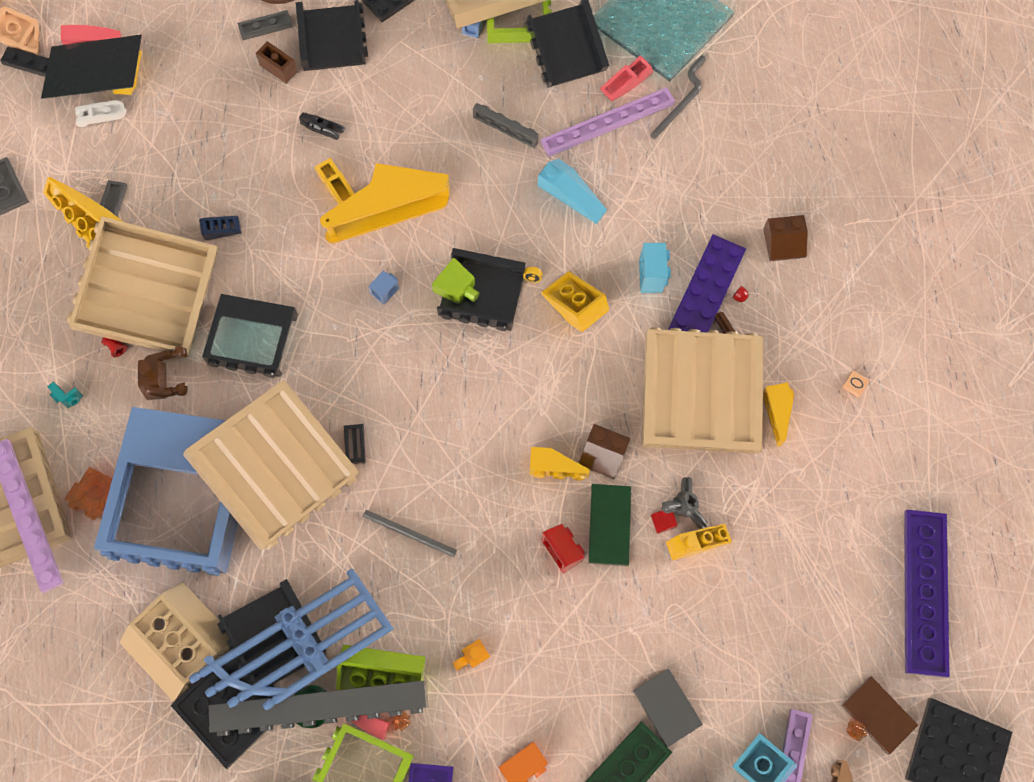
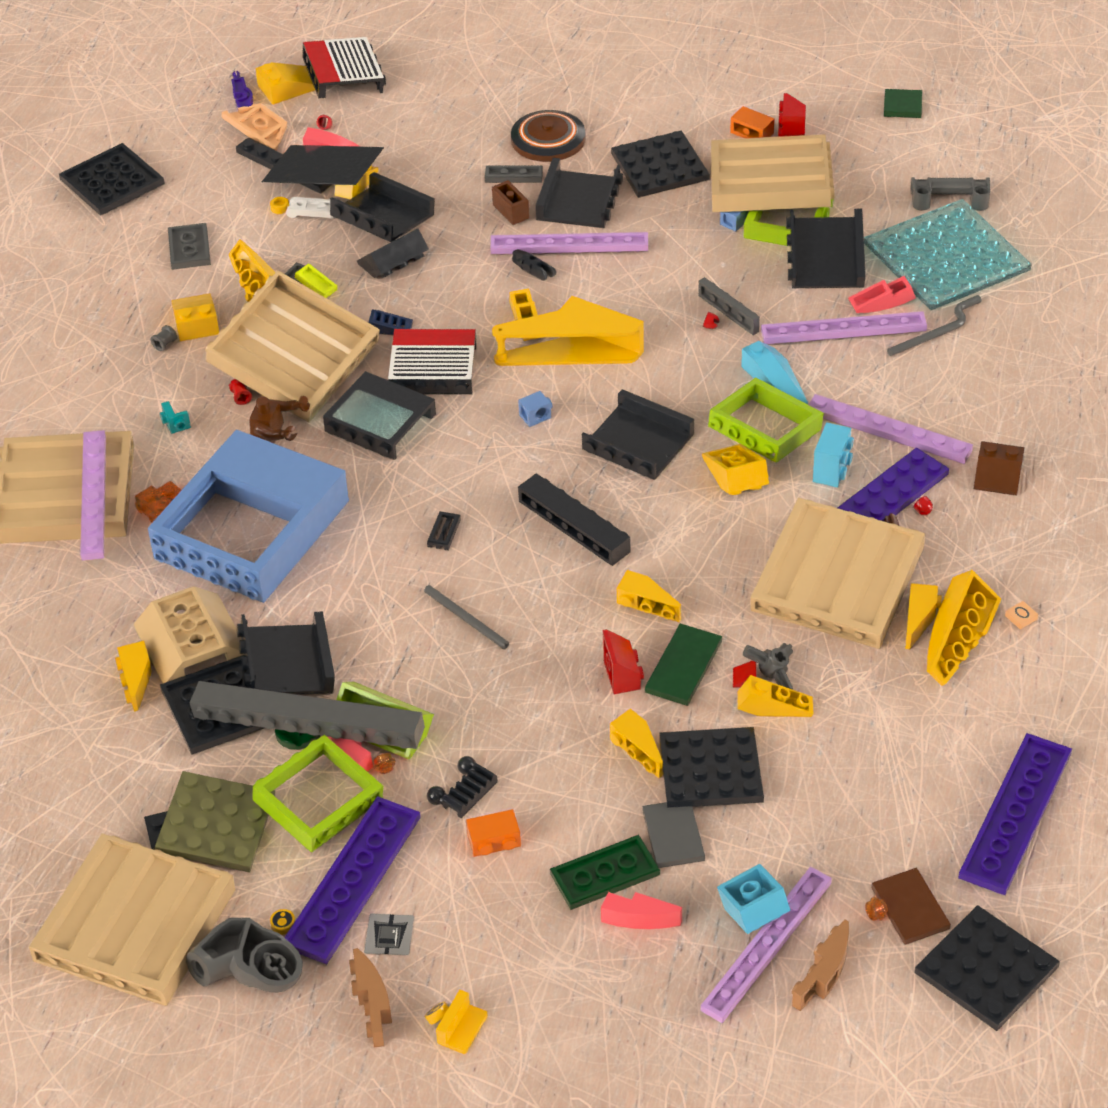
camera: 25 degrees right, 25 degrees down
(19, 303) = (163, 338): none -> dark grey bush
(37, 268) = (195, 317): none -> yellow slope
(67, 116) = (279, 205): none -> yellow tile
(69, 10) = (321, 121): none -> red hinge
(134, 198) = (315, 281): none -> neon yellow tile
(141, 694) = (136, 671): none -> yellow slope
(165, 98) = (385, 208): none -> black panel
(194, 148) = (394, 254): none -> black slope
(271, 465) = (352, 508): tan panel -> none
(274, 260) = (433, 360): none -> panel
(302, 641) = (314, 656): medium blue piece -> none
(343, 91) = (570, 242): none -> lavender plate
(455, 283) = (610, 420): lime torso -> none
(462, 399) = (574, 519): none -> black brick
(473, 655) = (484, 732): light orange plate -> none
(483, 724) = (466, 792): none -> black gear
(494, 145) = (709, 321): none -> red hinge
(533, 274) = (699, 435): yellow tile -> none
(591, 221) = (782, 403): none -> lime window
(602, 620) = (634, 736): none -> yellow slope
(604, 451) = (707, 597): reddish brown slope -> none
(673, 629) = (711, 767): none -> black plate
(682, 218) = (892, 429): none -> lavender plate
(814, 407) = (960, 623): none -> yellow wedge

